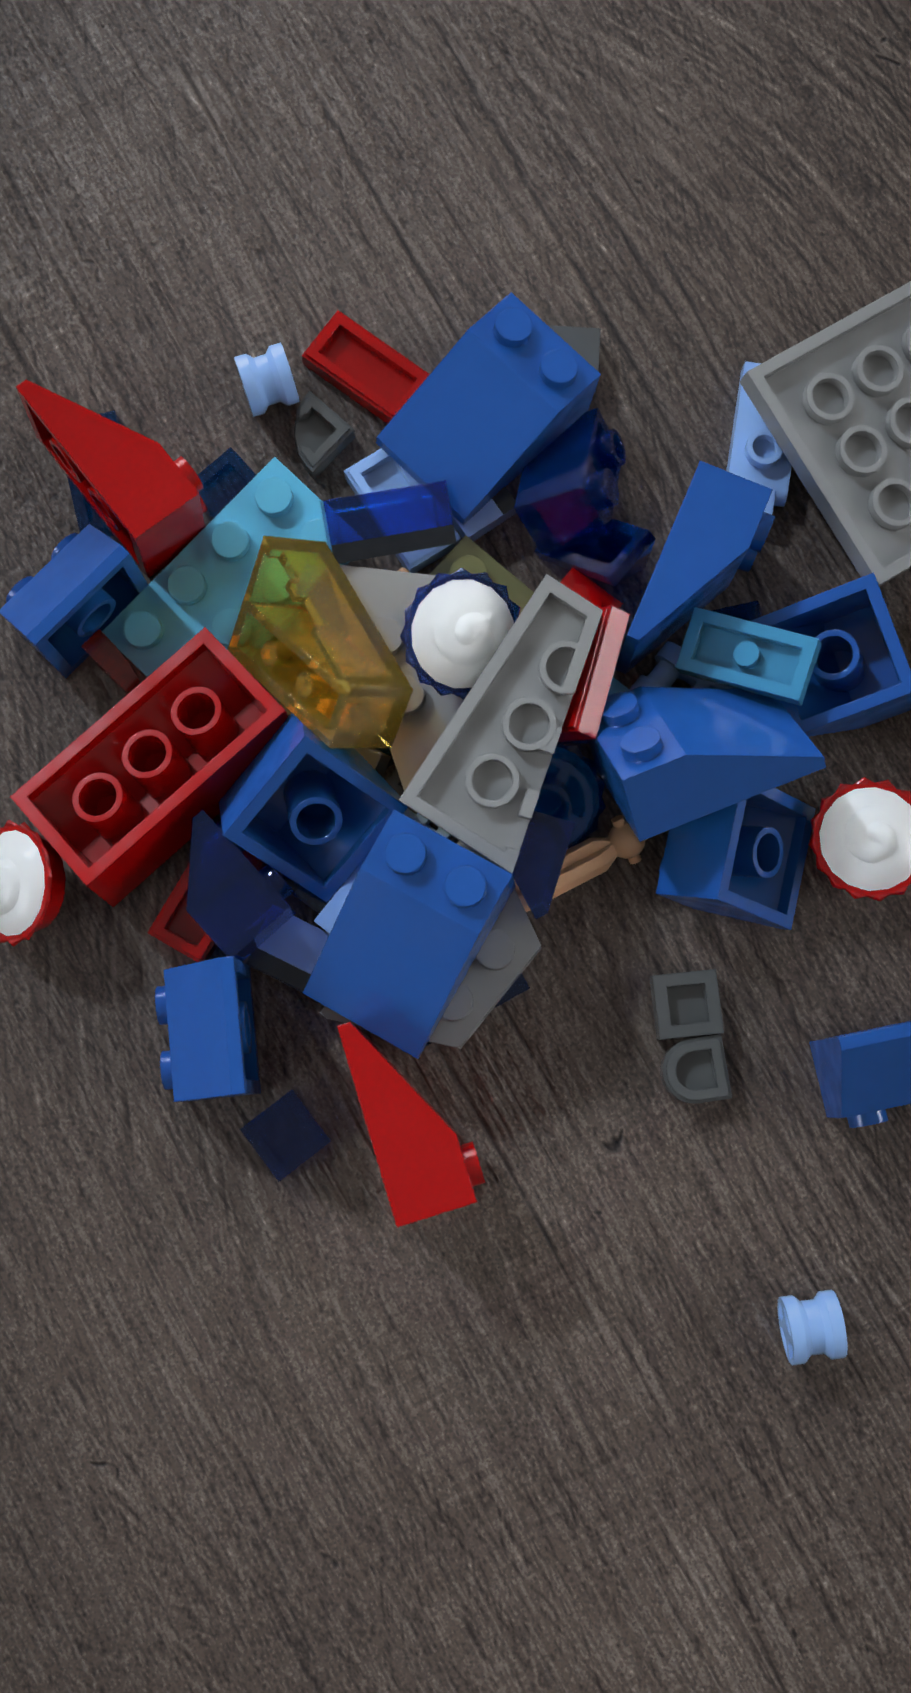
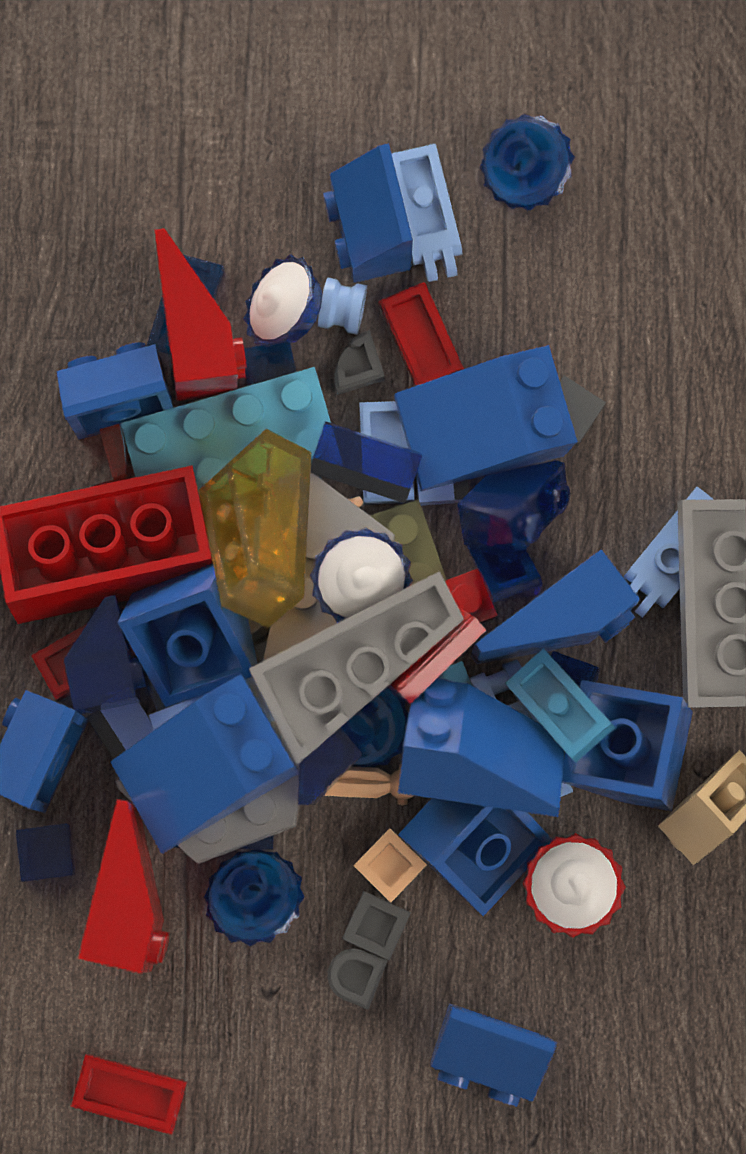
camera: 30 degrees right, 0 degrees up
(202, 407) = (283, 302): none -> white piece
(243, 264) = (370, 216): none -> blue slope
(295, 236) = (428, 210): none -> light blue hinge
(372, 131) = (527, 162): none -> clear blue piece
(530, 1341) = (129, 1094): none -> red tile
(554, 1059) = (257, 910): none -> clear blue piece
(664, 932) = (390, 865): none -> light nougat plate

